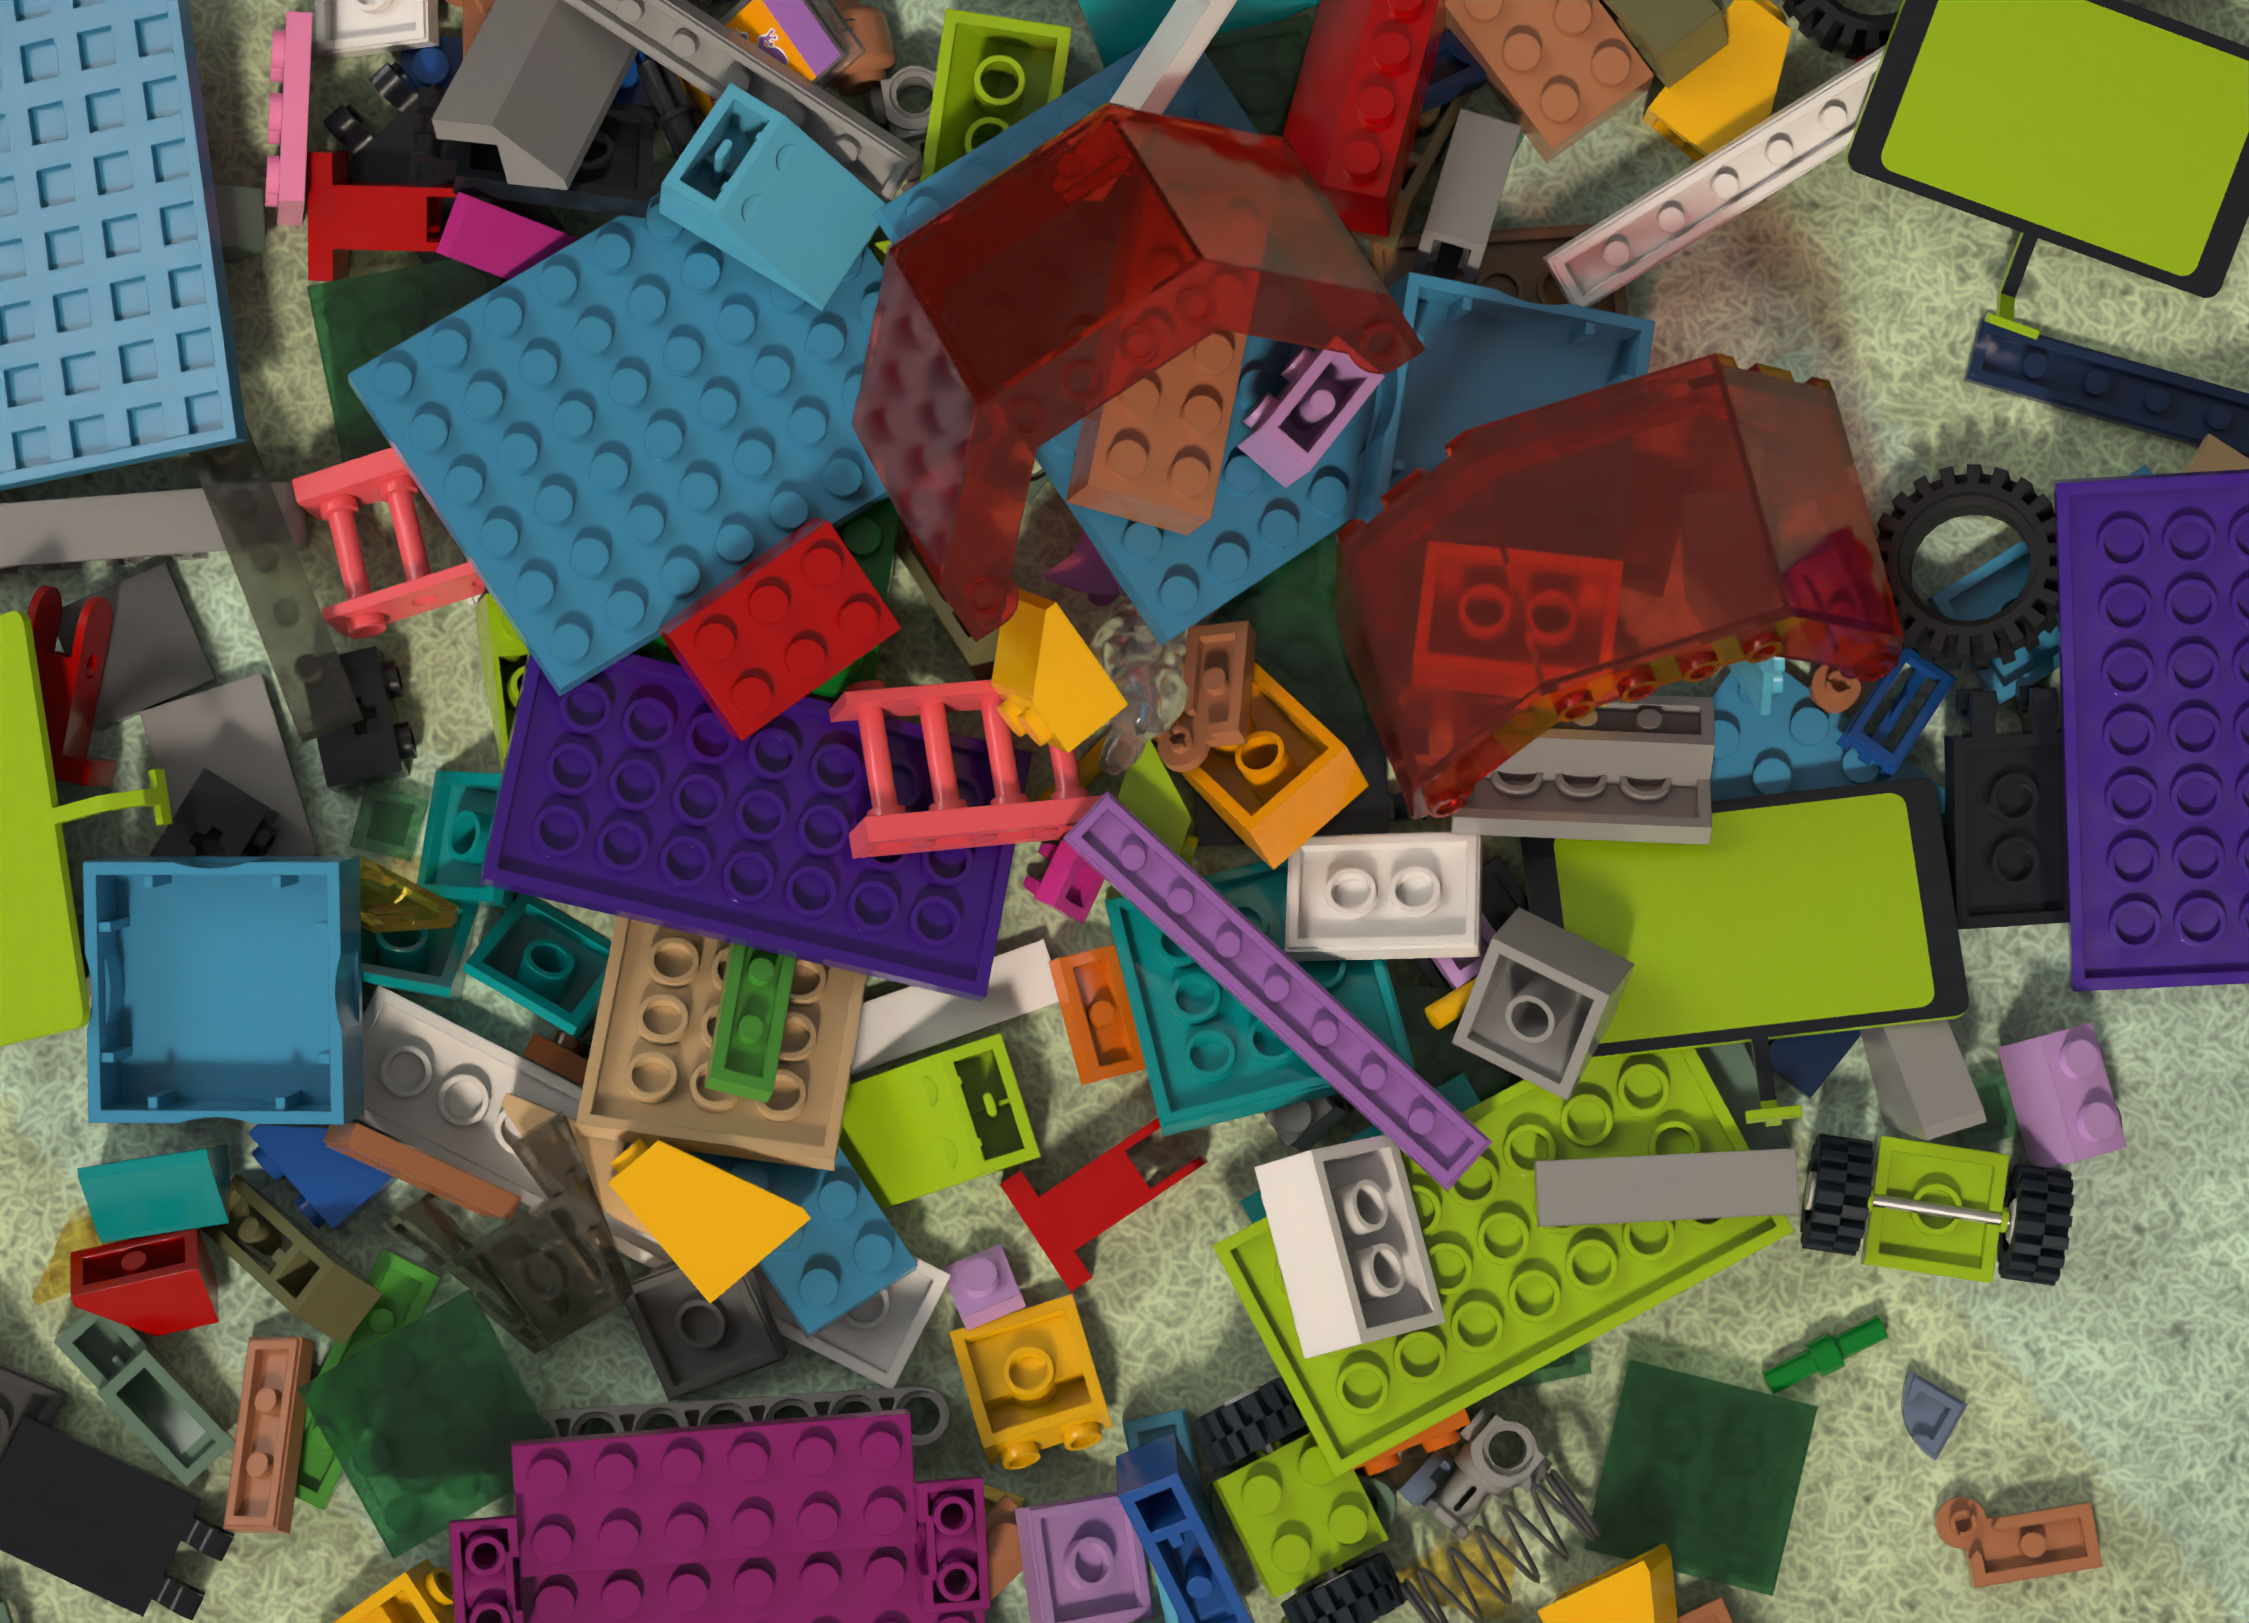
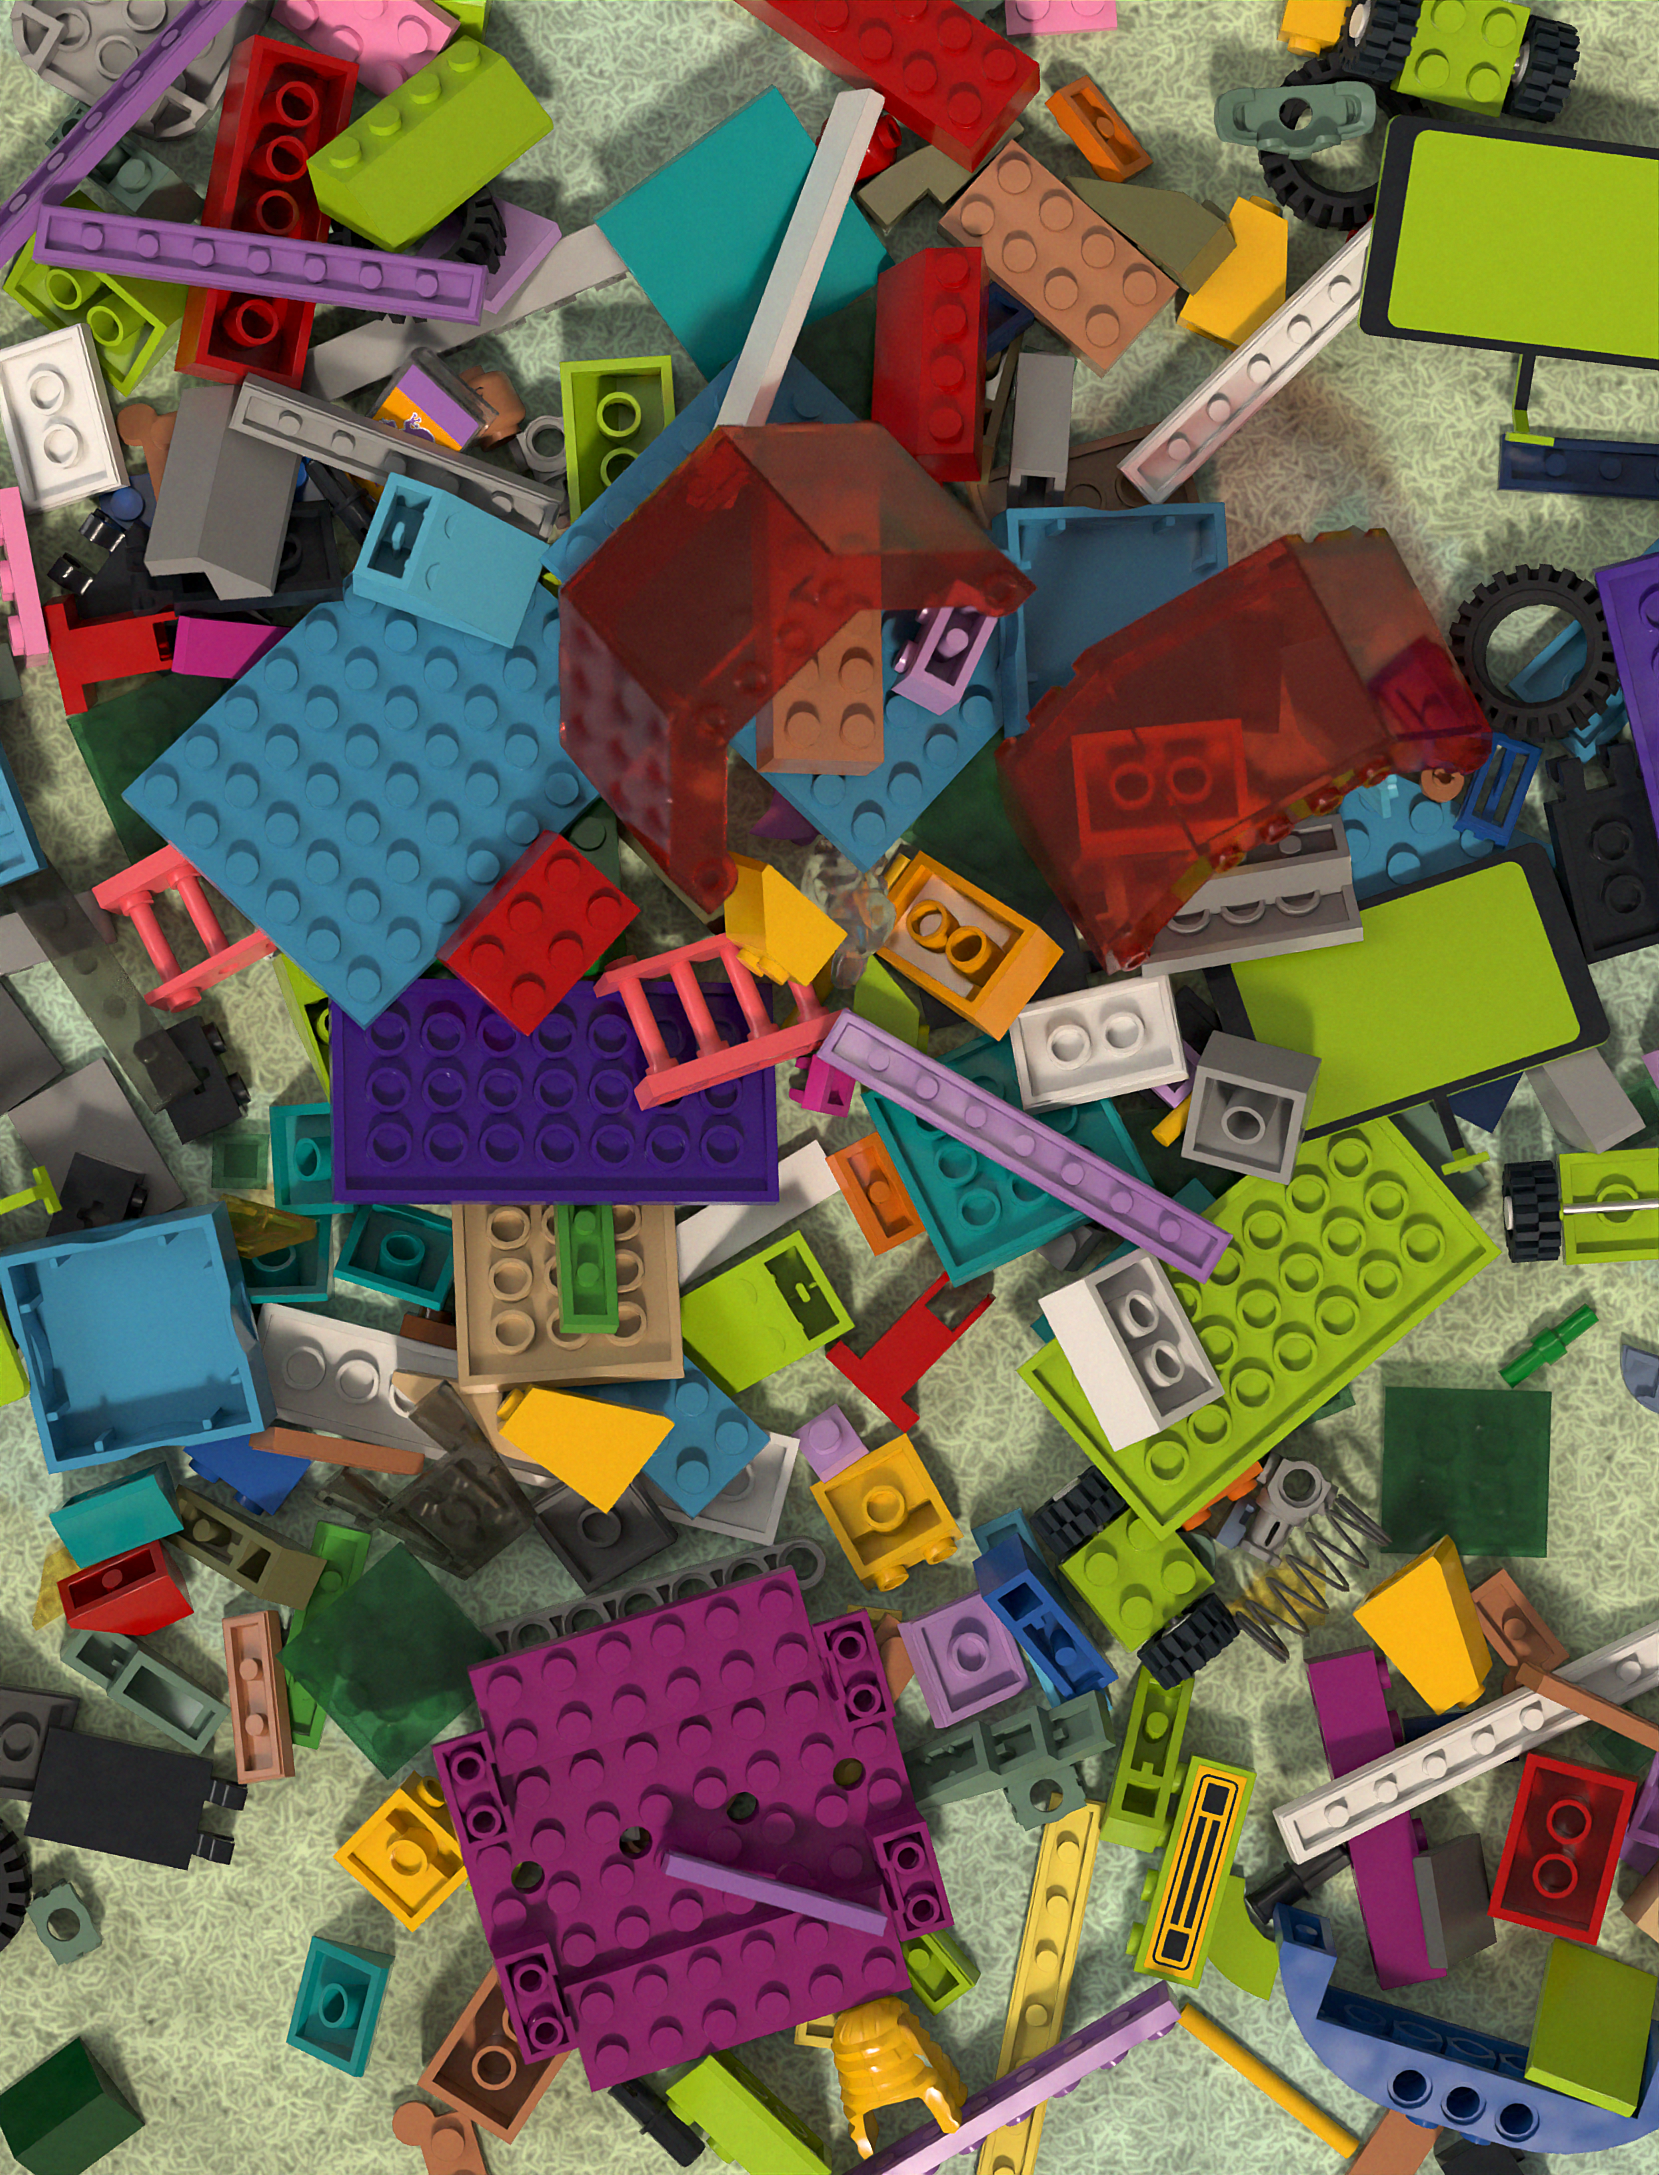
camera: 10 degrees left, 5 degrees up
(1219, 688) = (921, 901): nougat hinge -> none
(1666, 1187) = (1387, 1240): light grey tile -> none

